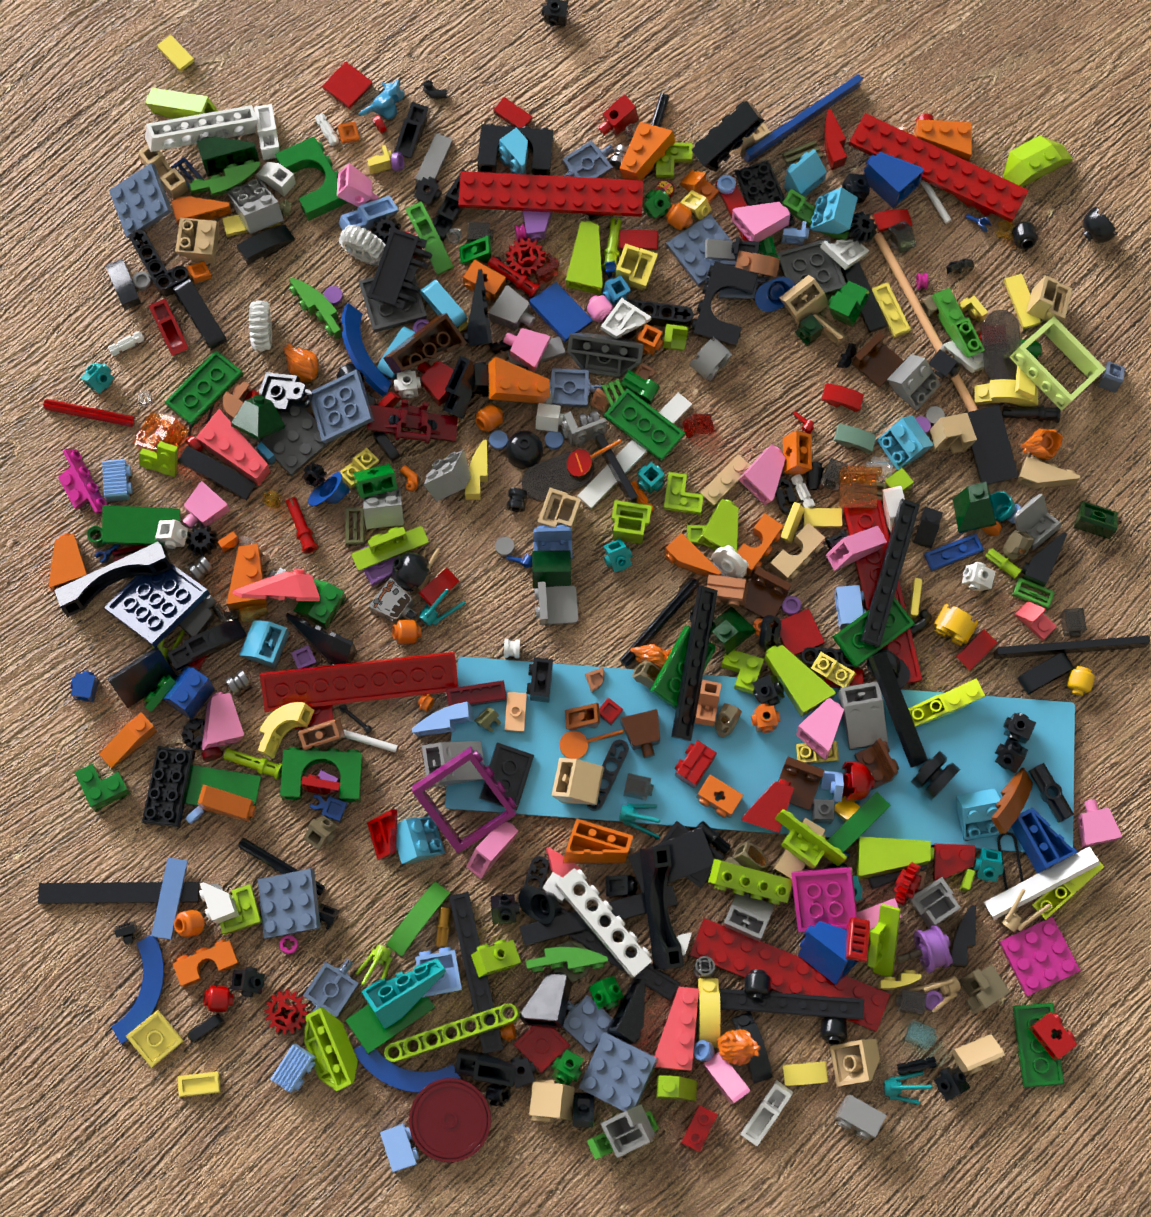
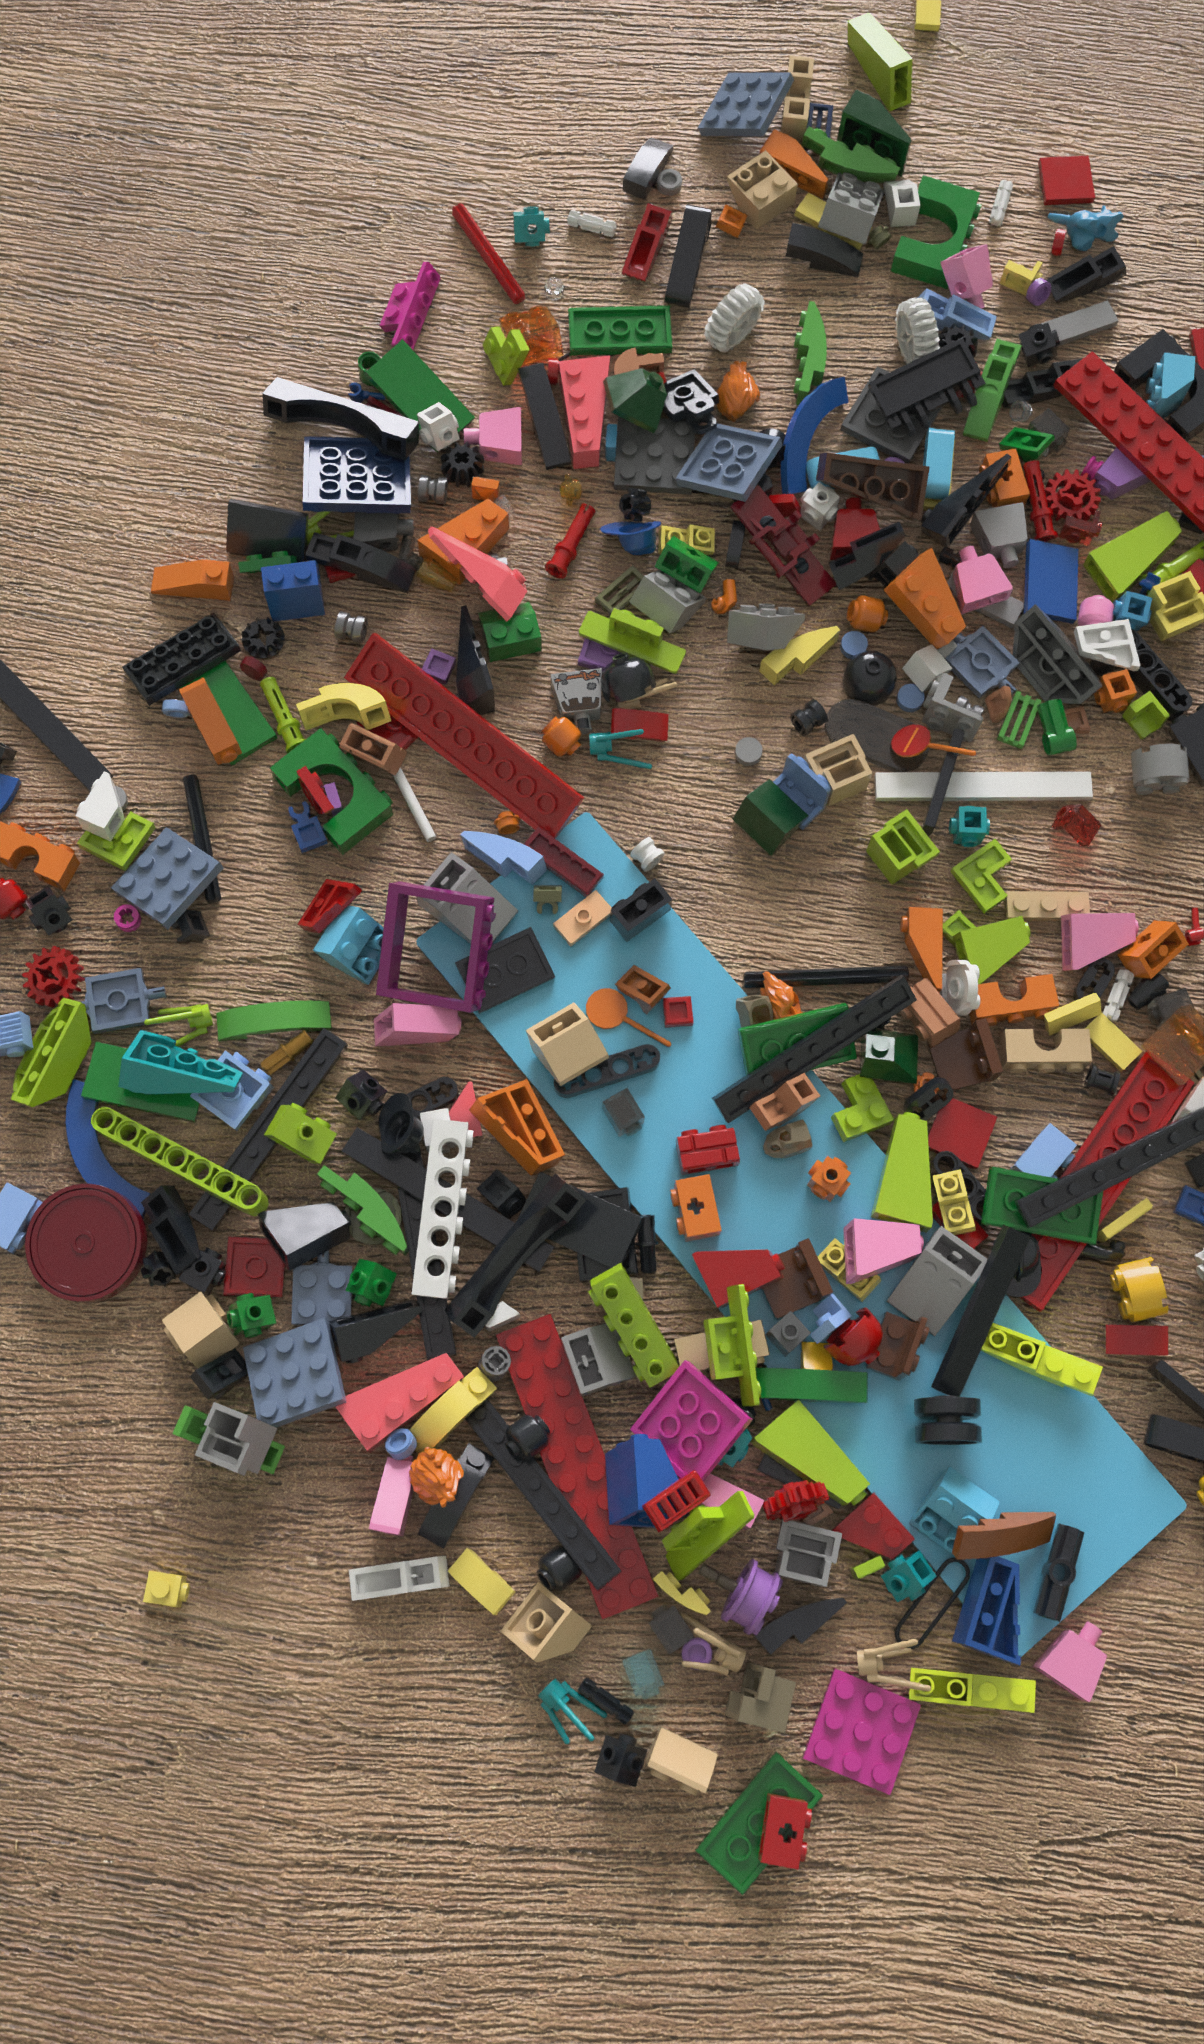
camera: 45 degrees right, 0 degrees up
(66, 562) = (318, 364): orange slope -> none
(84, 686) = (208, 492): blue brick -> none
(99, 791) = (116, 598): green brick -> none
(116, 480) = (444, 335): light blue brick -> none
(154, 262) = (695, 175): black beam -> none
(169, 898) = (66, 761): medium blue tile -> none
(189, 923) = (57, 801): orange head -> none
(193, 128) = (855, 70): white brick -> none
(221, 722) = (292, 646): bright pink slope -> none
(264, 643) = (416, 616): medium azure slope -> none
(267, 131) = (939, 151): white slope -> none
(320, 832) = (270, 841): dark tan brick -> none
(333, 295) = (838, 359): medium lavender tile -> none
(343, 708) = (424, 752): black hinge -> none
(348, 132) = (1019, 223): orange tile -> none
(432, 92) = (1146, 260): black arm -> none
(508, 1032) = (236, 1220): orange plate -> none
(526, 561) = (751, 784): blue hand -> none
(556, 604) = (737, 855): light grey bracket -> none
(595, 679) = (698, 966): nougat tile -> none
(617, 555) = (851, 868): teal brick -> none
(628, 814) = (585, 1130): teal plant -> none
(641, 497) = (939, 834): orange axle -> none
(642, 731) = (689, 1063): reddish brown torso -> none
(644, 425) = (1019, 769): green tile -> none
(676, 1088) = (332, 1452): lime slope -> none
(698, 1129) = (312, 1518): red brick -> none
(750, 856) = (663, 1302): dark tan rock -> none
(769, 690) = (863, 1153): black brick -> none
(791, 605) = (982, 1096): medium lavender tile -> none
(855, 547) = (1114, 1102): bright pink slope -> none
(859, 1117) = (484, 1688): light grey brick -> none
(1010, 755) = (1055, 1486): black brick -> none
(1019, 727) = (1105, 1470): black brick -> none
(1043, 882) = (948, 1657): white tile -> none

